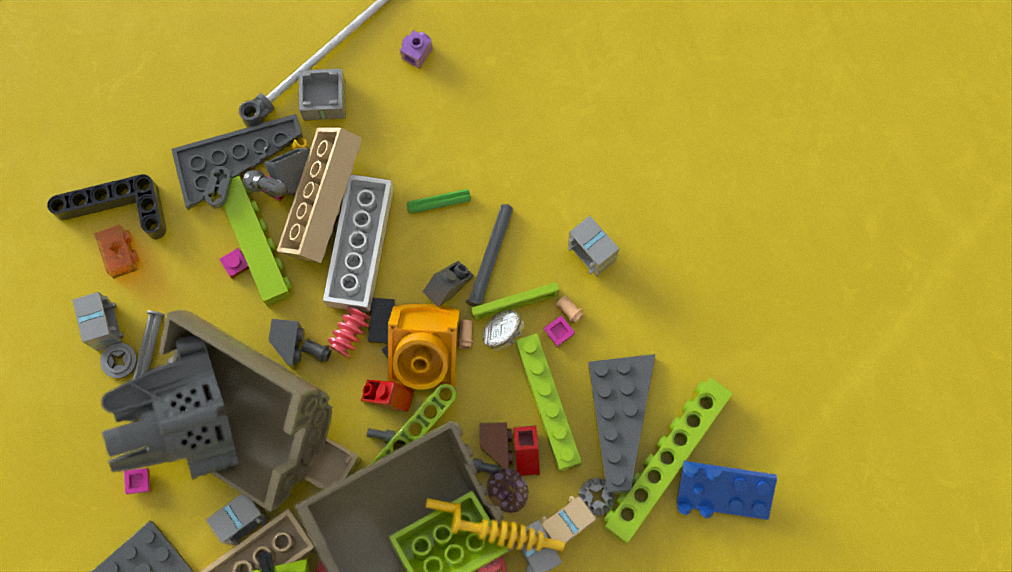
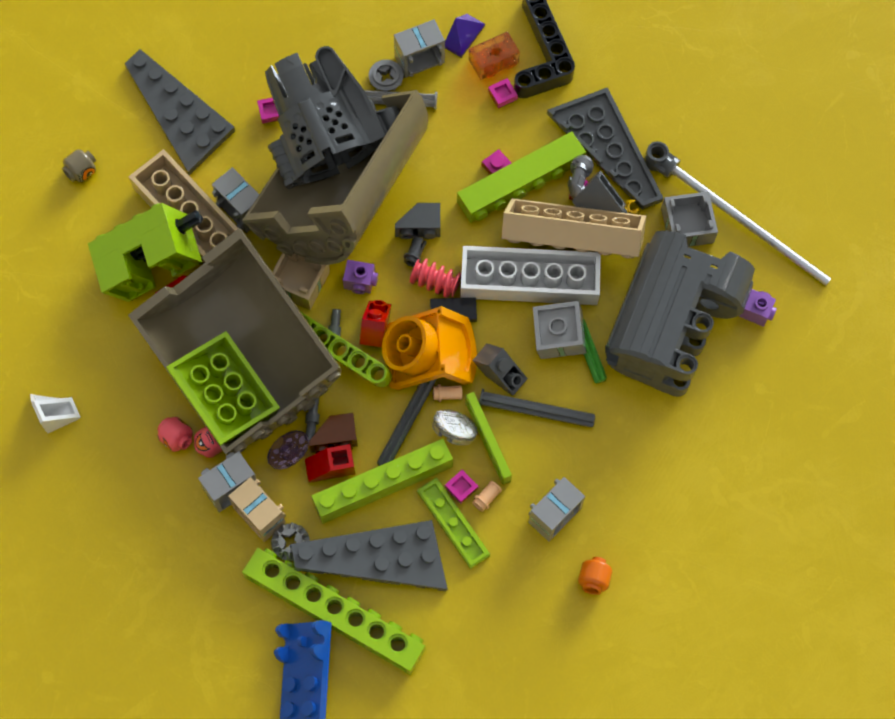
camera: 80 degrees right, 5 degrees down
(85, 278) = (462, 34): none -> dark purple slope
(159, 248) = (502, 93): none -> dark pink plate
(223, 188) = (569, 133): dark grey beam -> none
(341, 404) = (359, 277): none -> medium lavender brick
(416, 124) = (665, 305): none -> dark grey piece
(418, 222) = (559, 330): none -> light grey container
(482, 529) = (235, 434): yellow piece -> none
(494, 378) = (406, 422): none -> dark grey axle
(591, 343) = (453, 523): none -> lime tile
(654, 222) = (595, 576): none -> orange head

